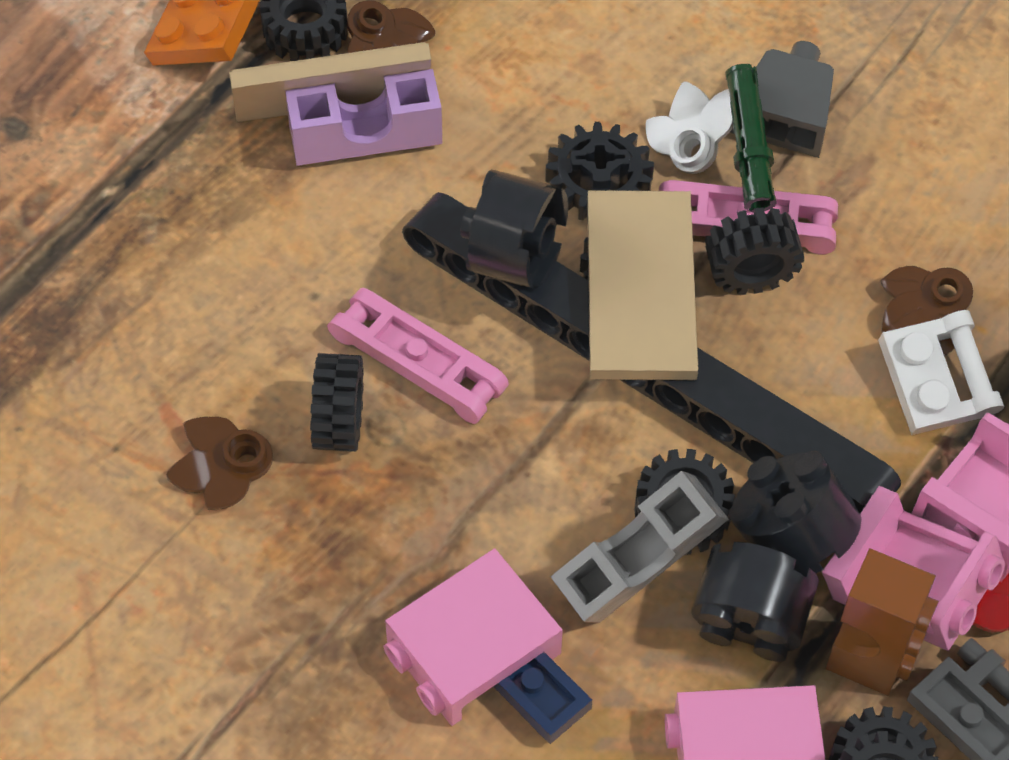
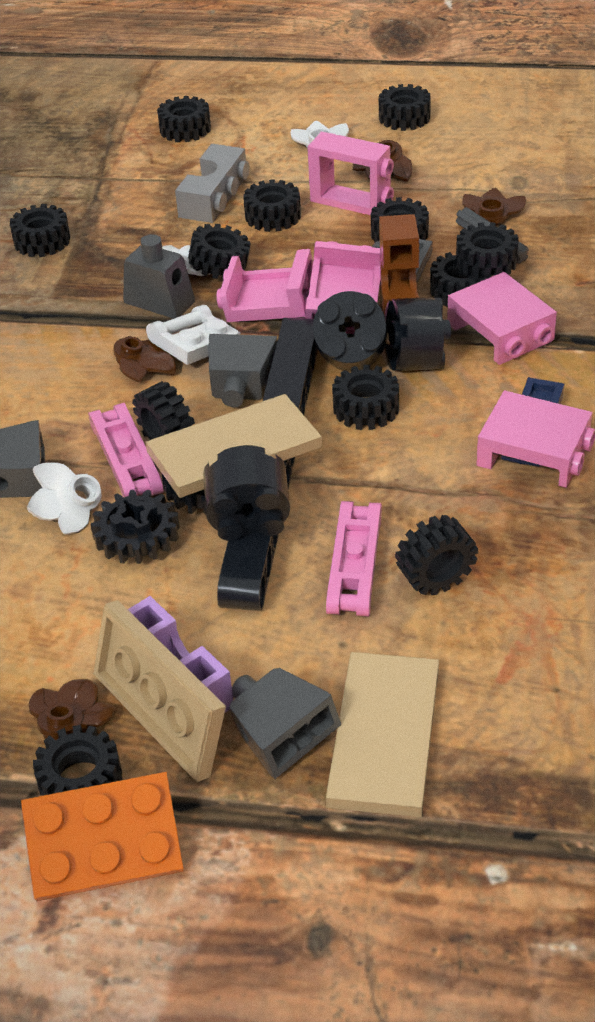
camera: 115 degrees left, 15 degrees down
(174, 268) = (384, 735): none -> tan tile
(215, 464) = (520, 616): reddish brown plate -> none
(239, 174) = (281, 717): none -> dark grey torso
(662, 533) = (402, 361): light grey arch -> none
(752, 155) = (32, 455): dark green pin -> none
(831, 380) = (240, 366): none -> dark grey torso

